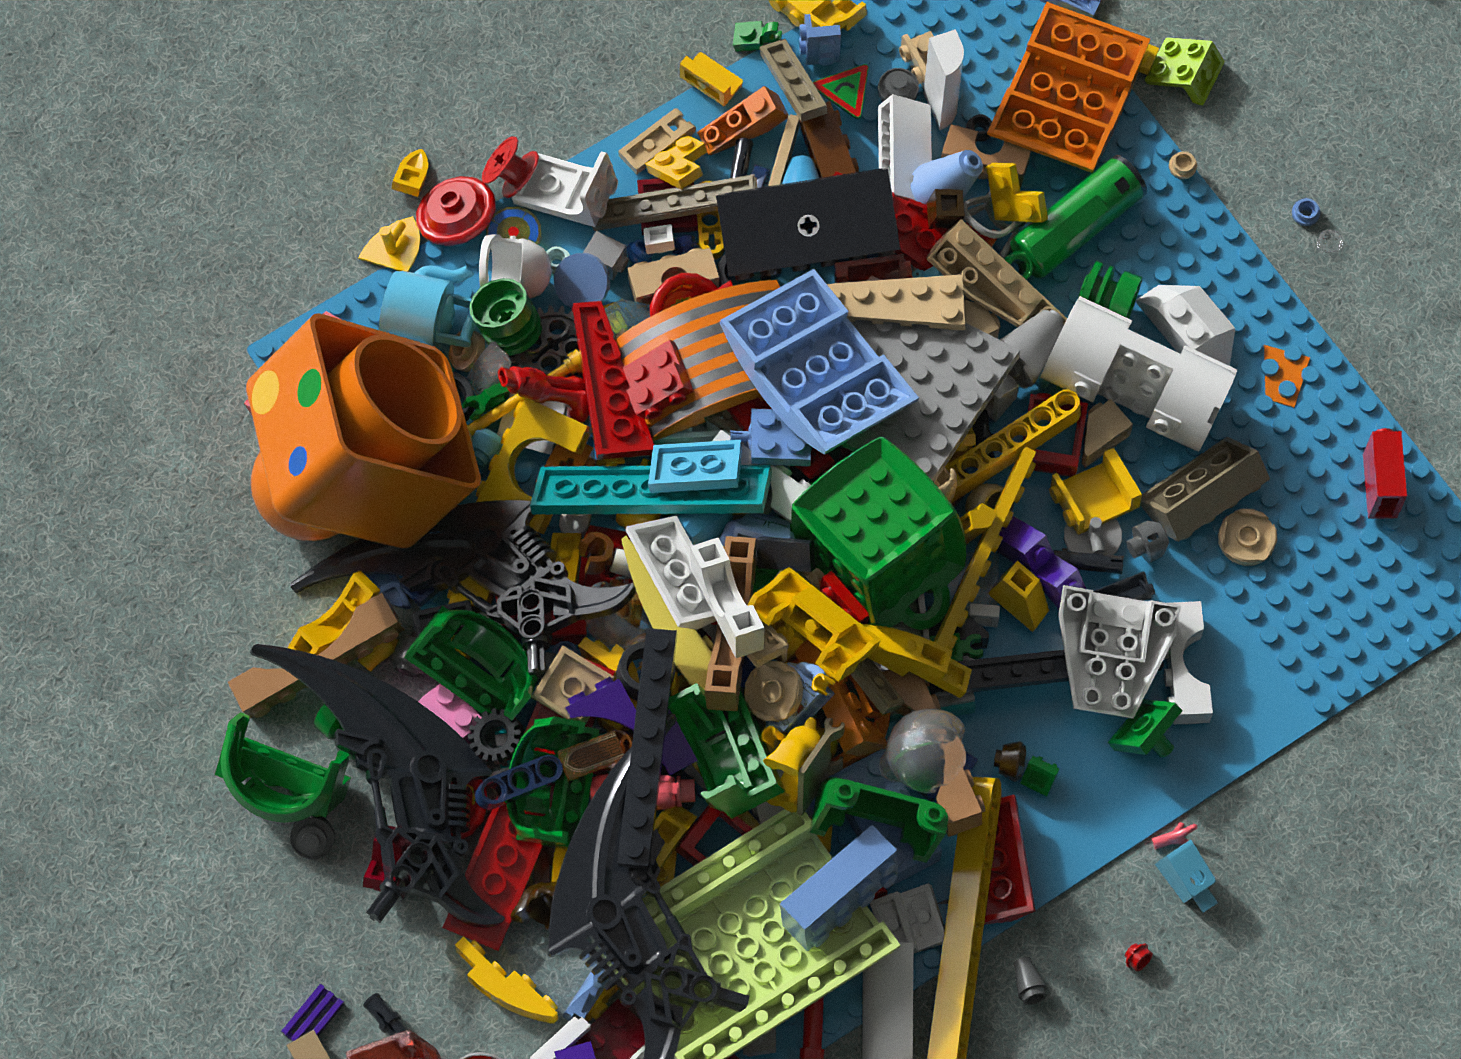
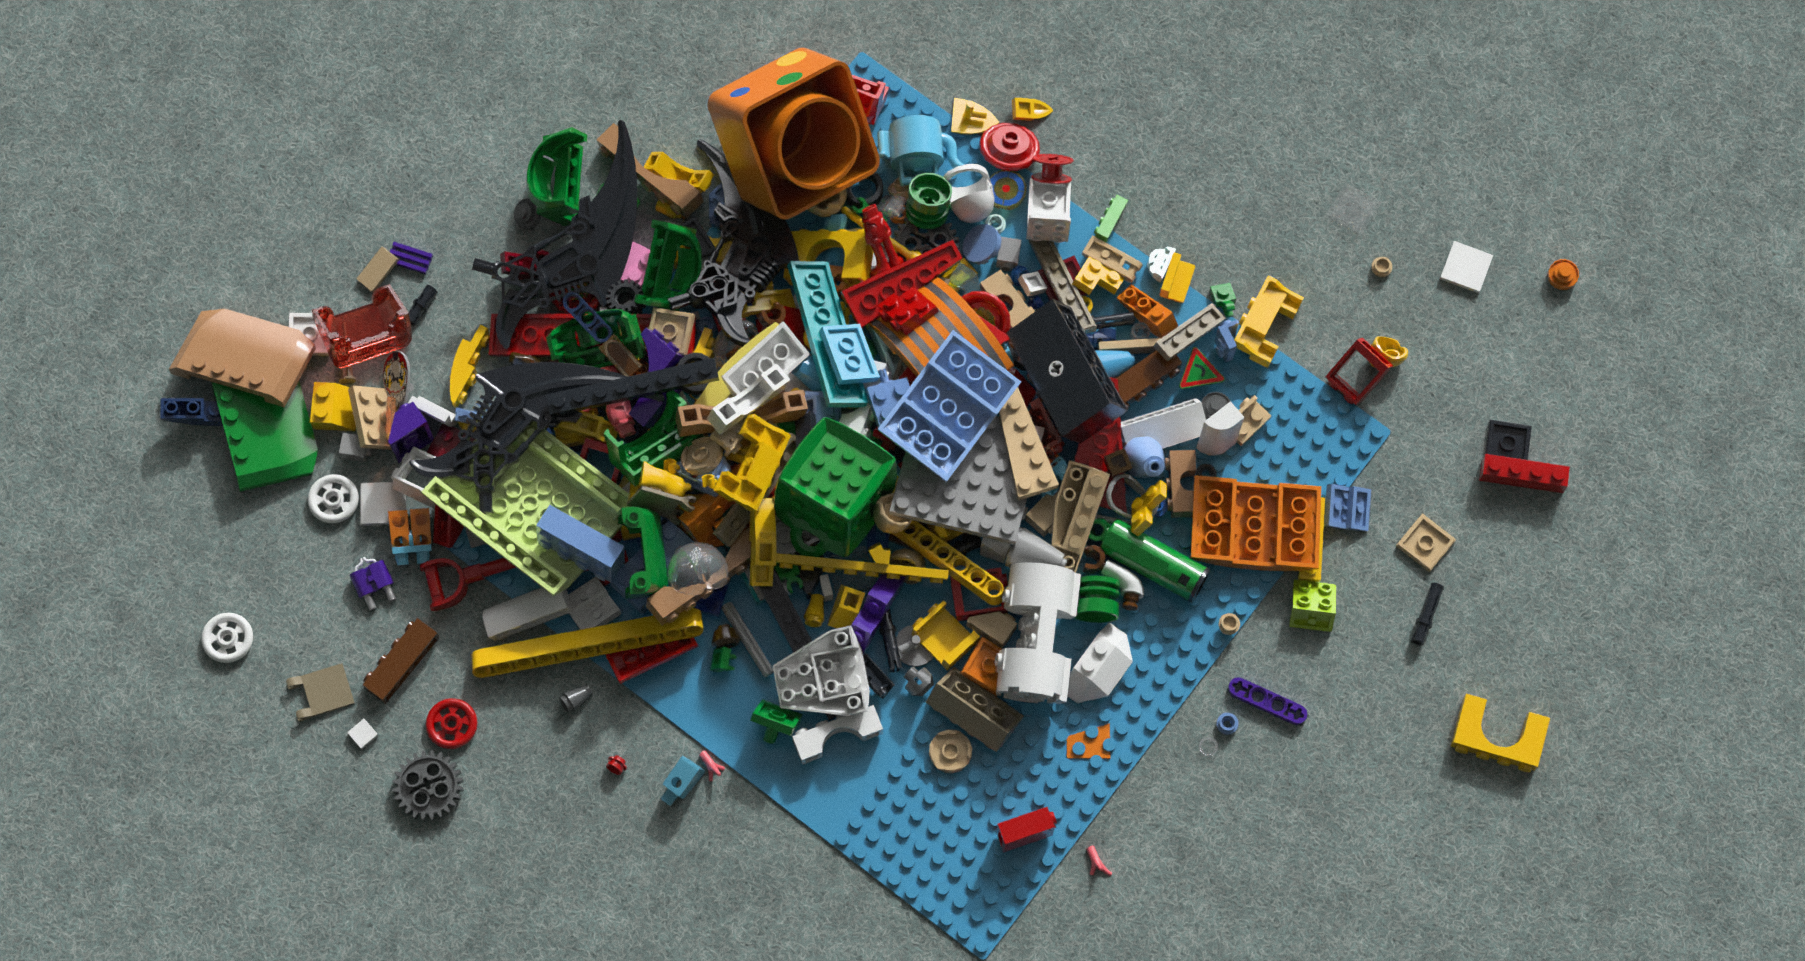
camera: 70 degrees right, 5 degrees up
(600, 125) = (1111, 218): none -> piece
(681, 91) = (1159, 262): none -> light aqua tile
(766, 133) = (1136, 327): none -> clear bush
(1010, 639) = (815, 611): none -> yellow cone
(1025, 734) = (747, 639): none -> light grey axle
(1079, 267) = (1130, 584): none -> piece
(1152, 456) = (981, 665): none -> orange plate
(1292, 160) = (1269, 697): none -> dark purple beam
(1437, 416) = (1096, 862): none -> coral bar

